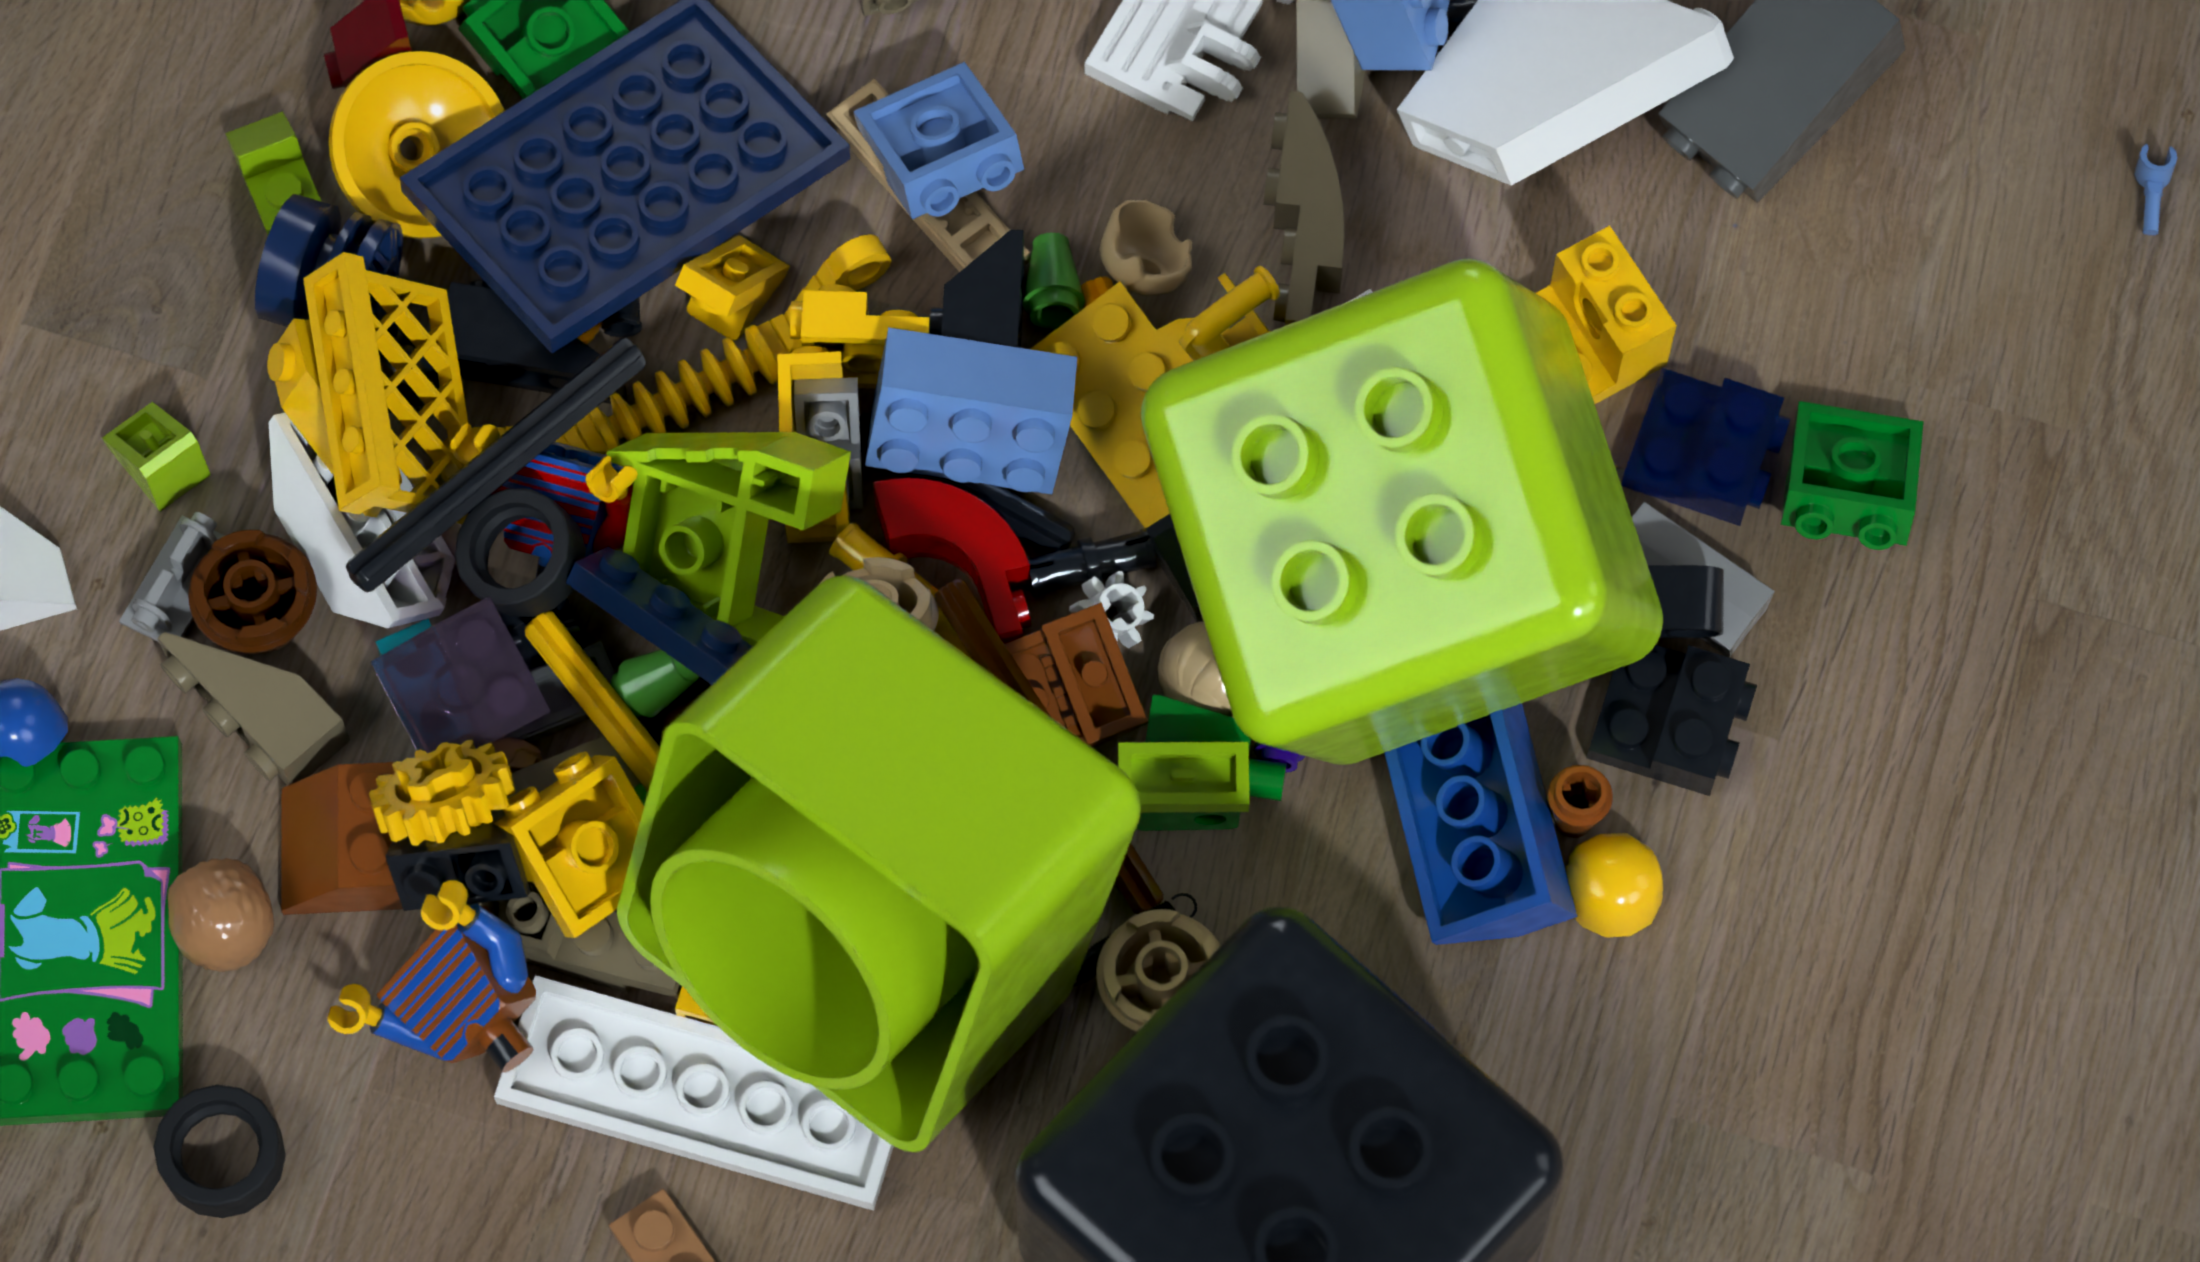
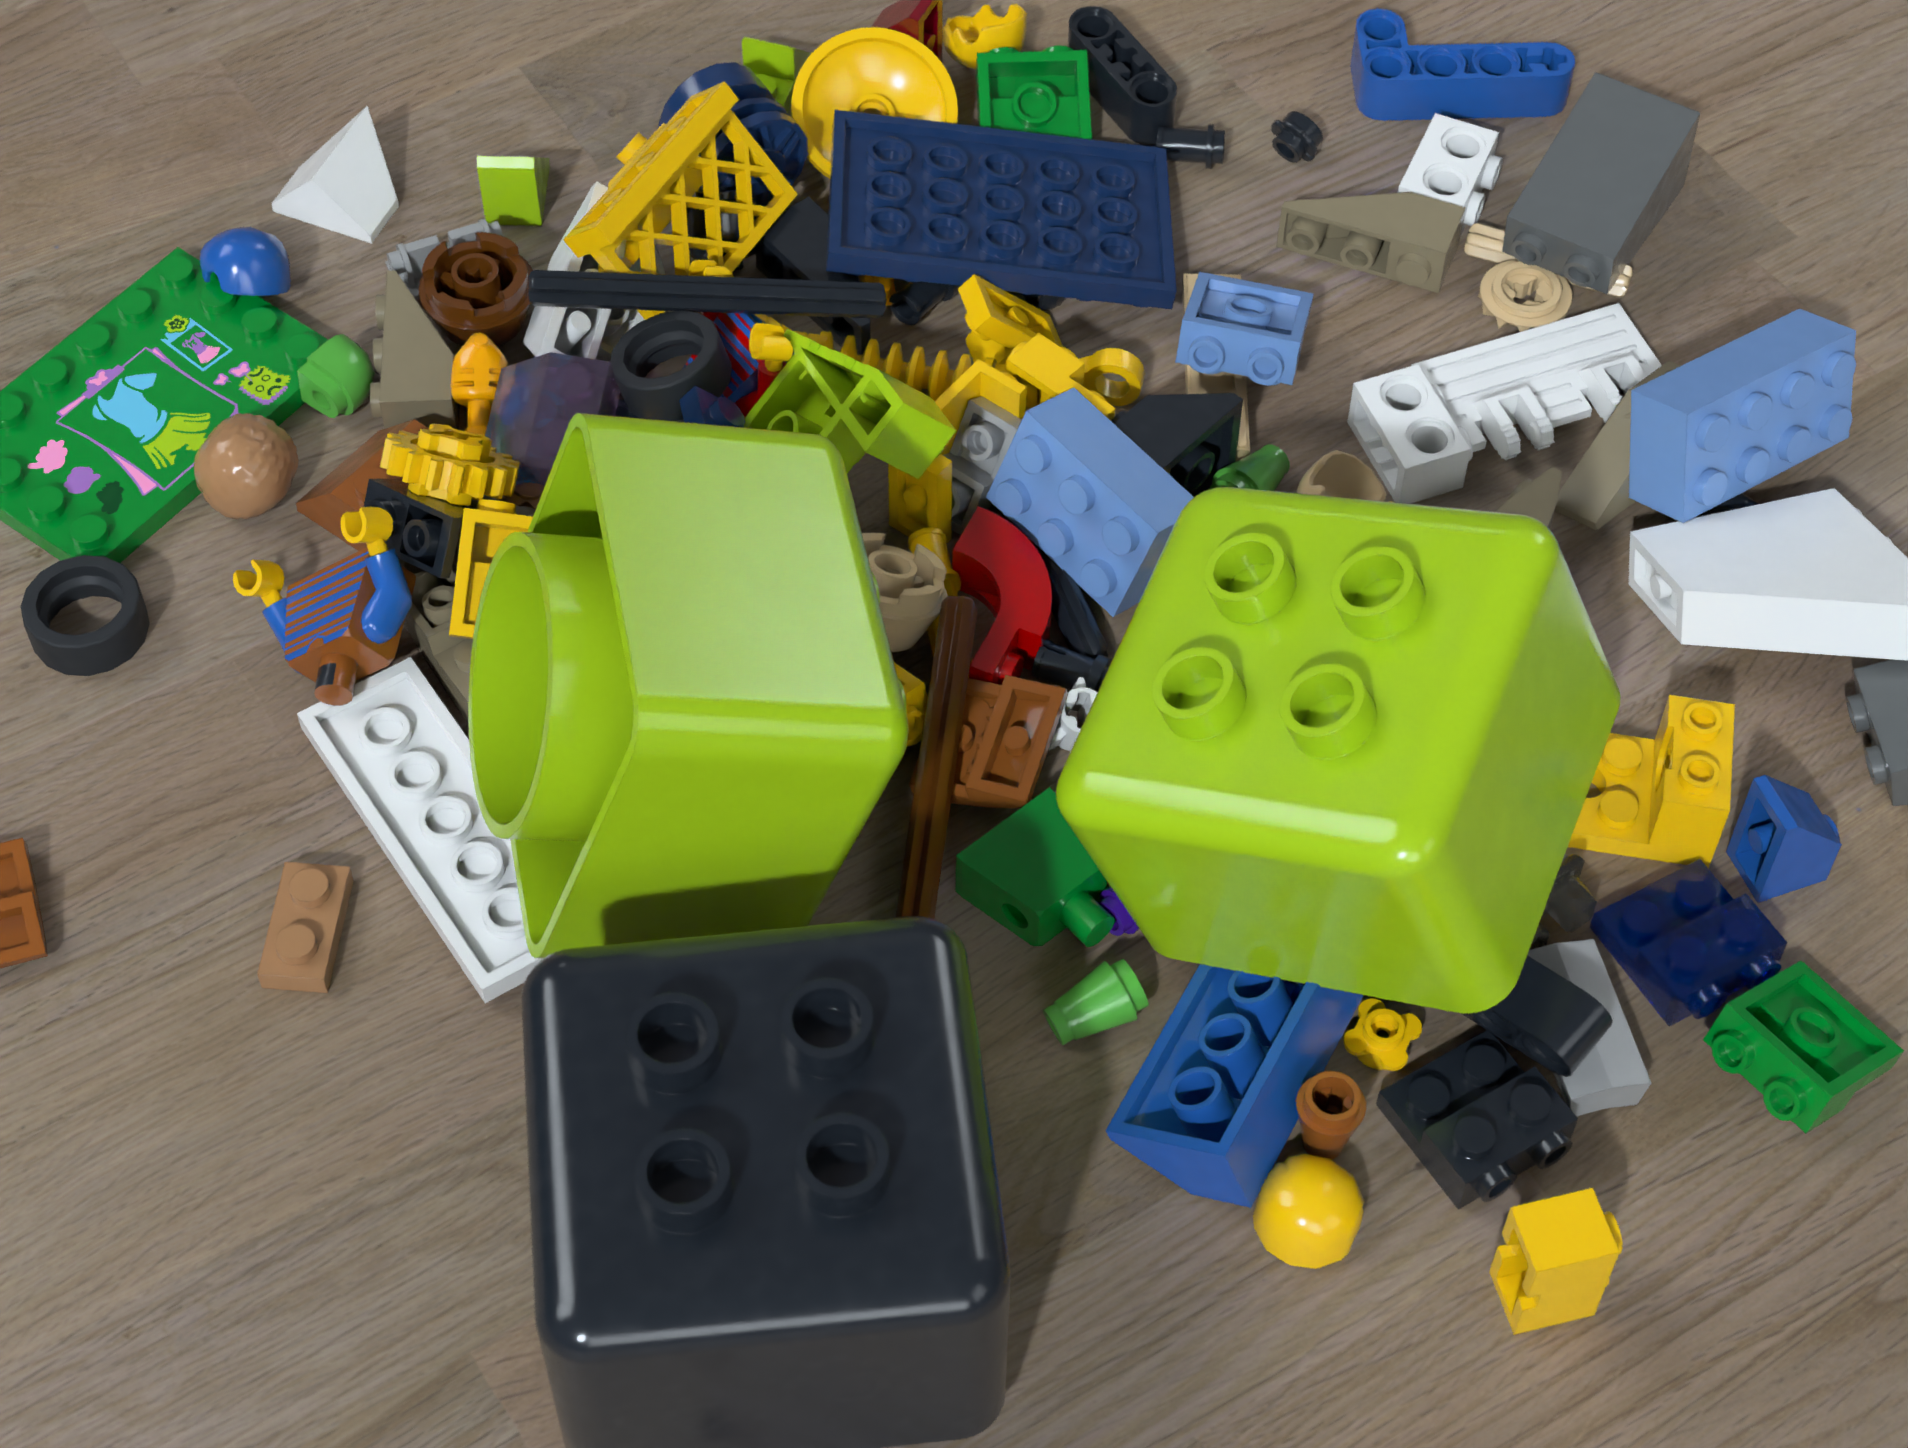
camera: 40 degrees right, 15 degrees down
(207, 769) = (336, 377): none -> bright green piece
(350, 686) = (475, 379): none -> light orange piece
(1132, 150) = (1409, 435): none -> white brick
(1188, 775) = (1011, 852): lime plate -> none
(1330, 841) = (1097, 1003): none -> bright green cone
(1549, 718) = (1378, 1051): none -> yellow plate
(1716, 309) = (1781, 840): none -> blue slope
(1825, 792) = (1555, 1260): none -> yellow brick

